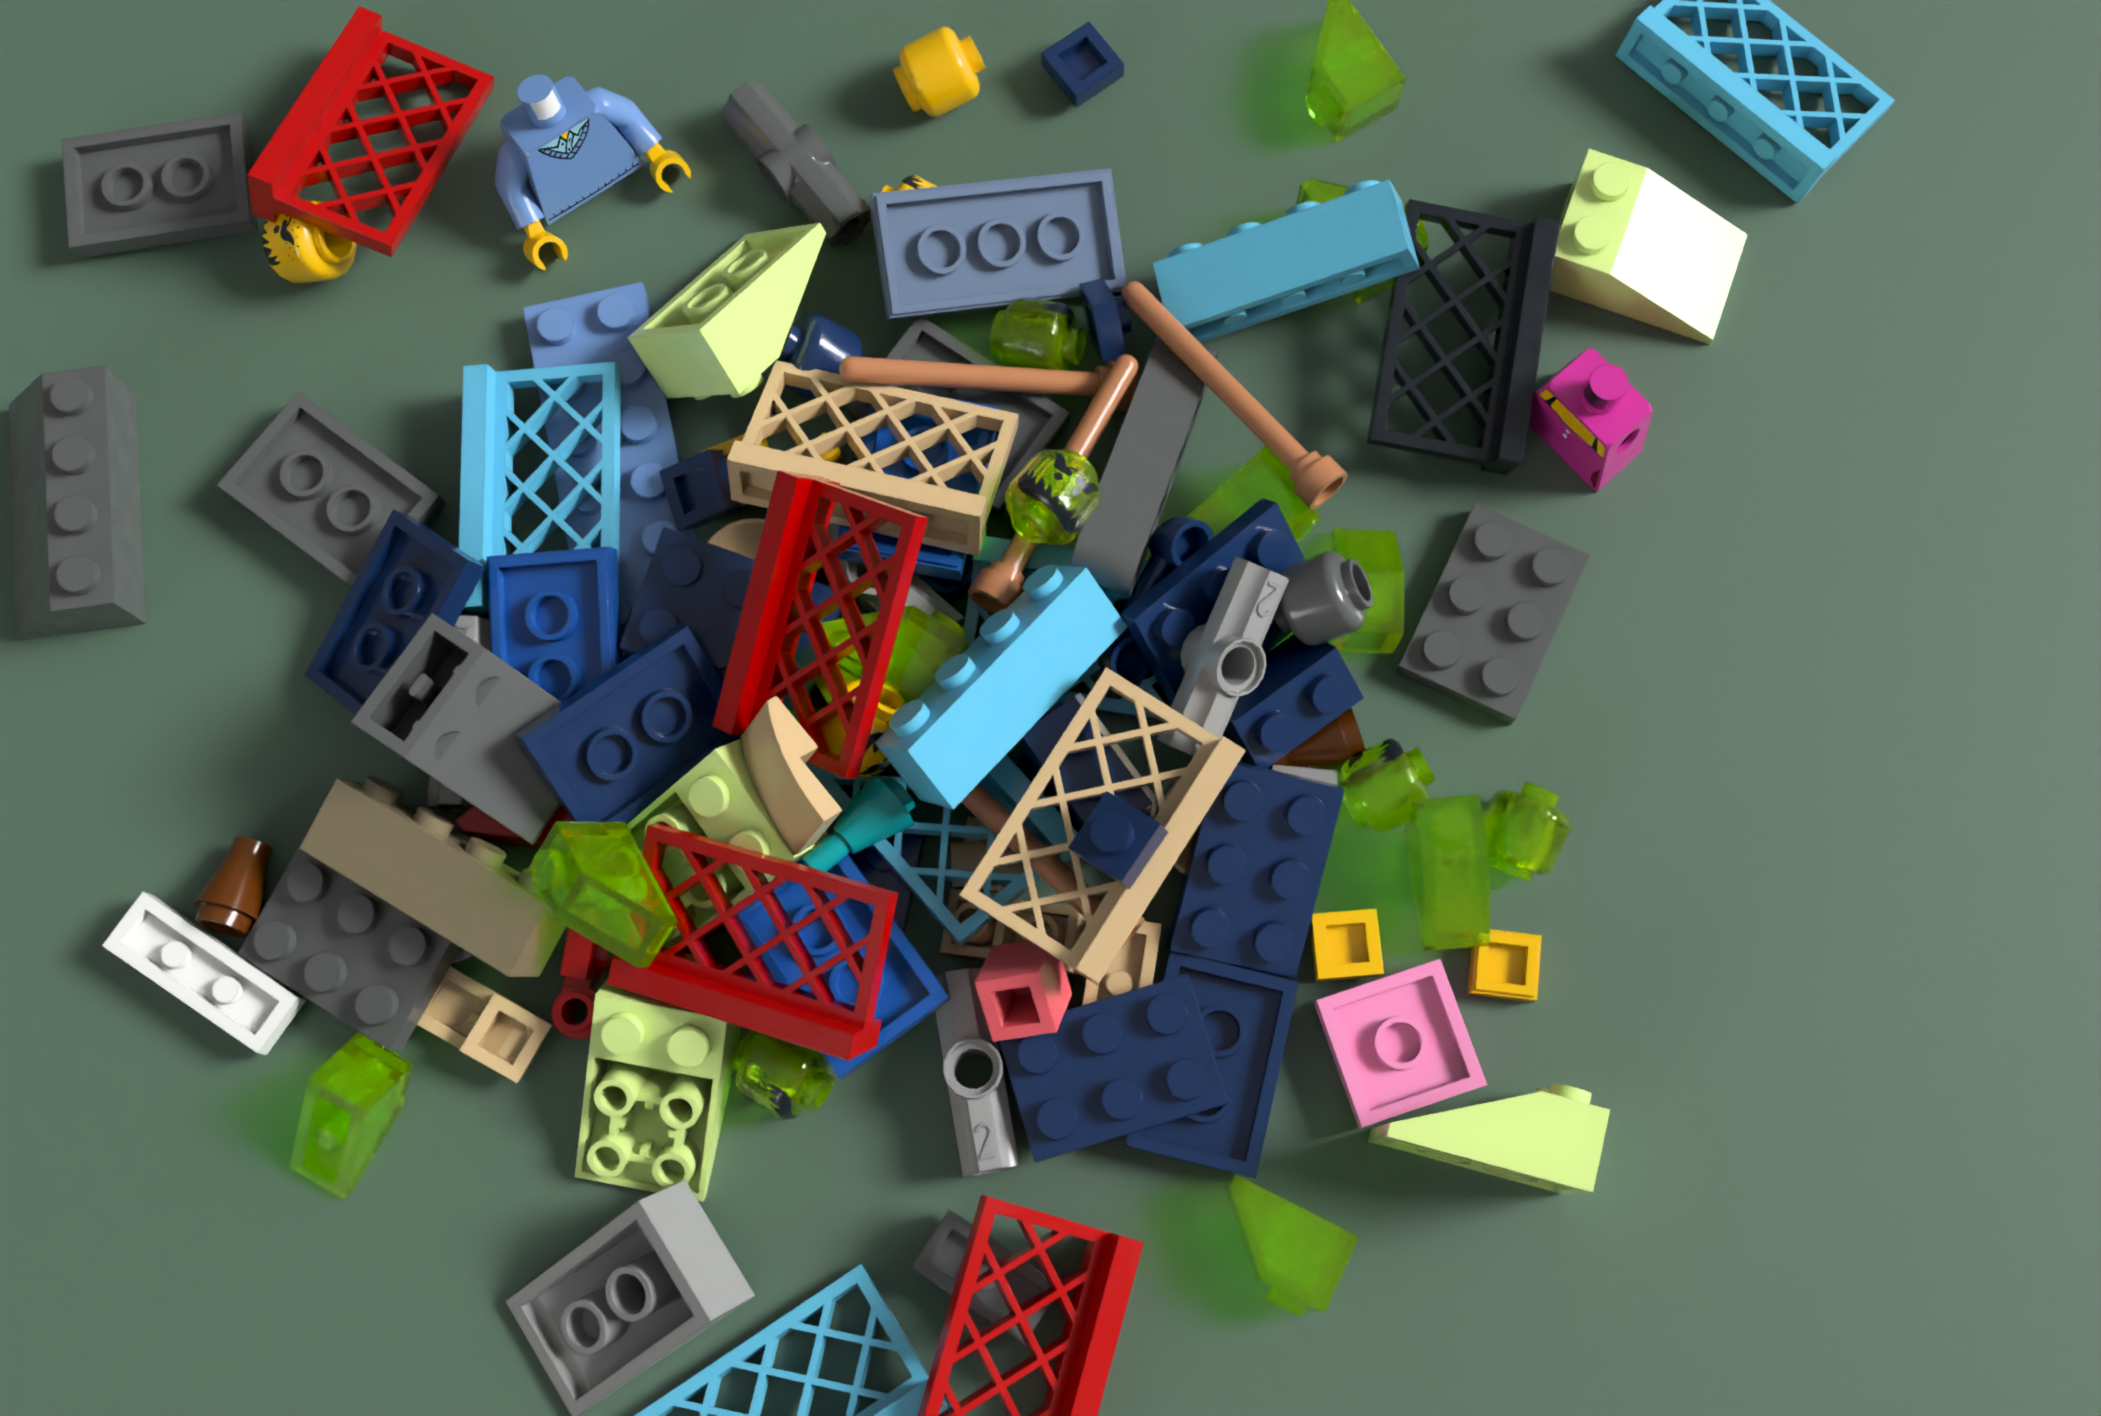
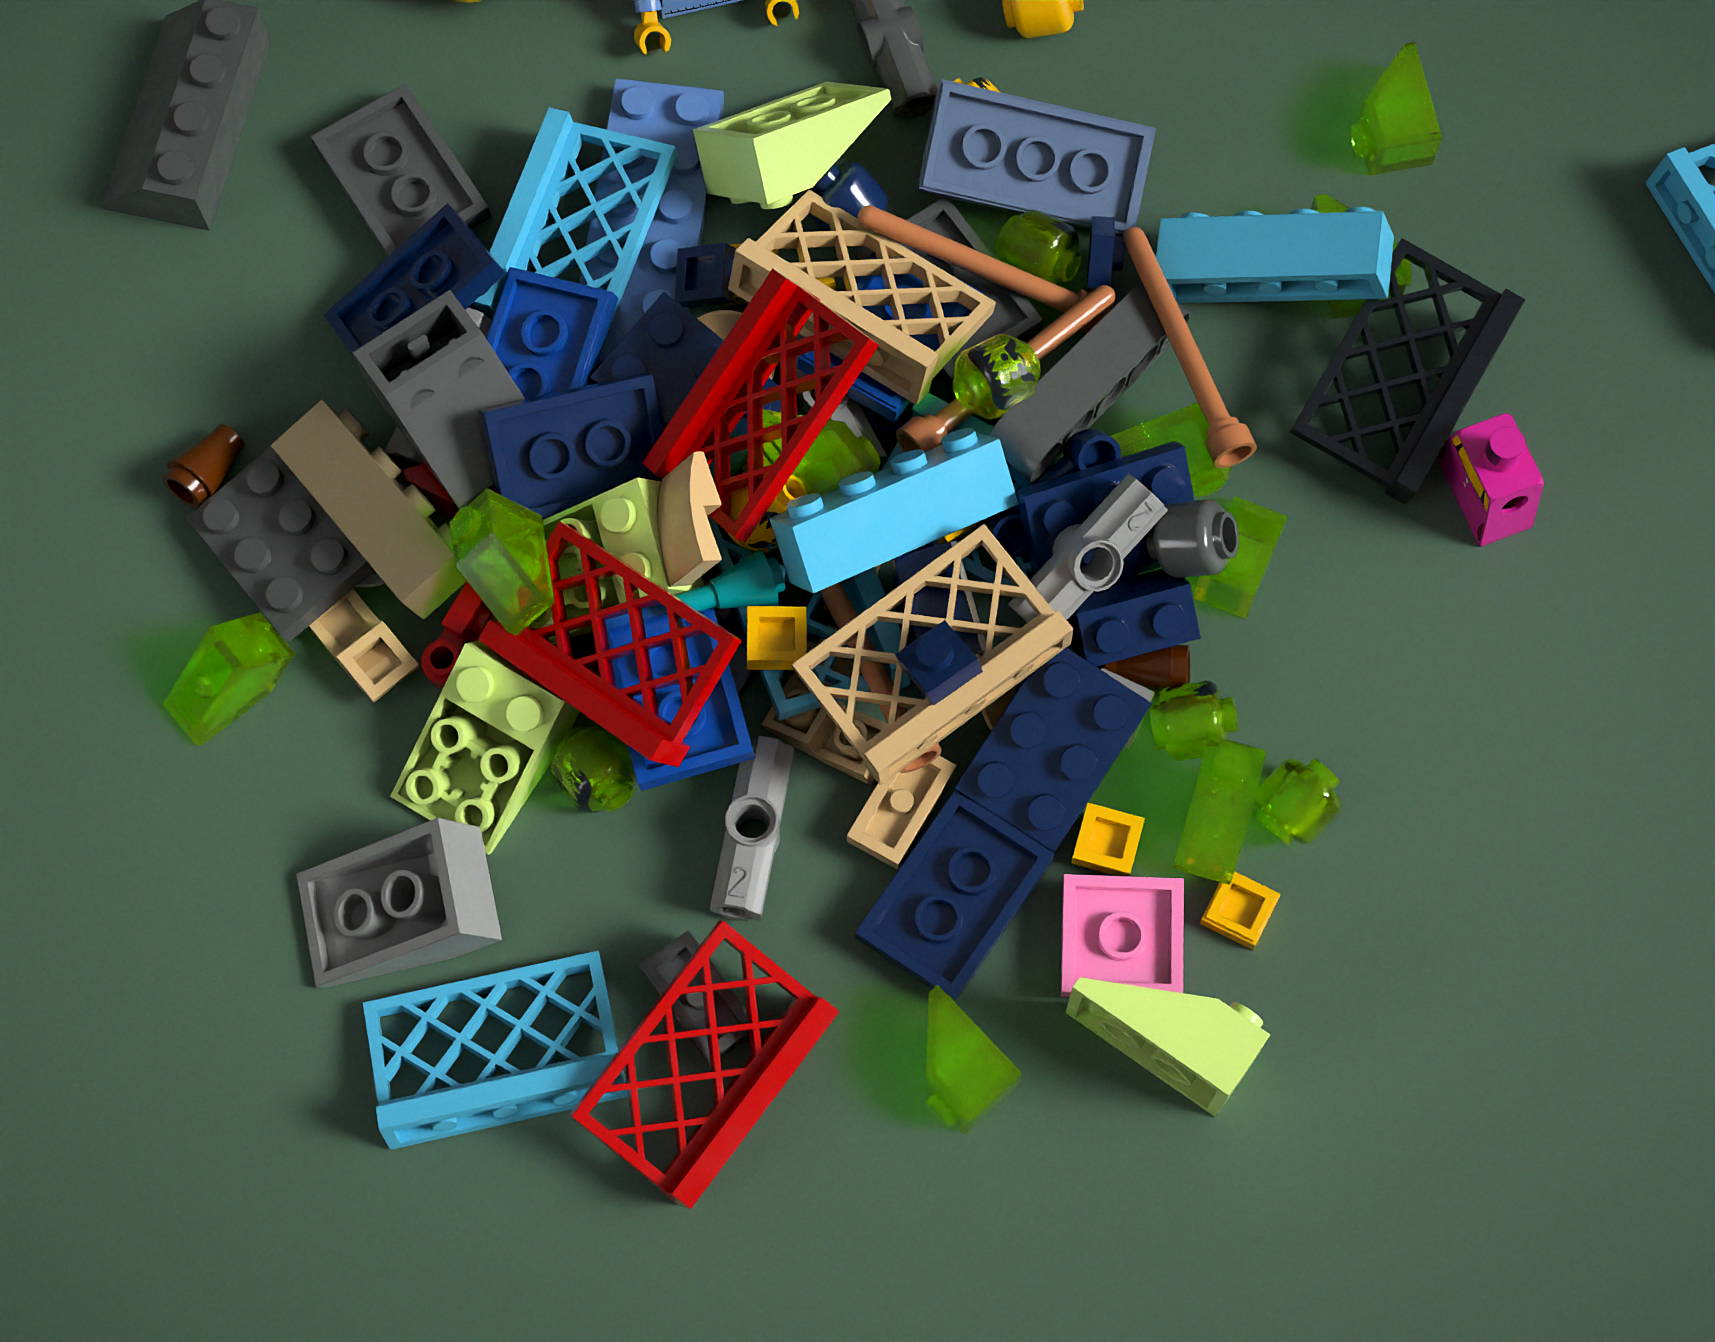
camera: 20 degrees right, 5 degrees down
(204, 973) = (154, 523): white plate -> none
(926, 863) = (775, 636): none -> yellow plate
(1022, 991) = (817, 770): coral brick -> none
(1082, 64) = (1168, 35): dark blue plate -> none
(1115, 1069) = (868, 864): dark blue plate -> none
(1493, 614) = (1345, 615): dark grey plate -> none
(1644, 249) = (1599, 353): slope -> none

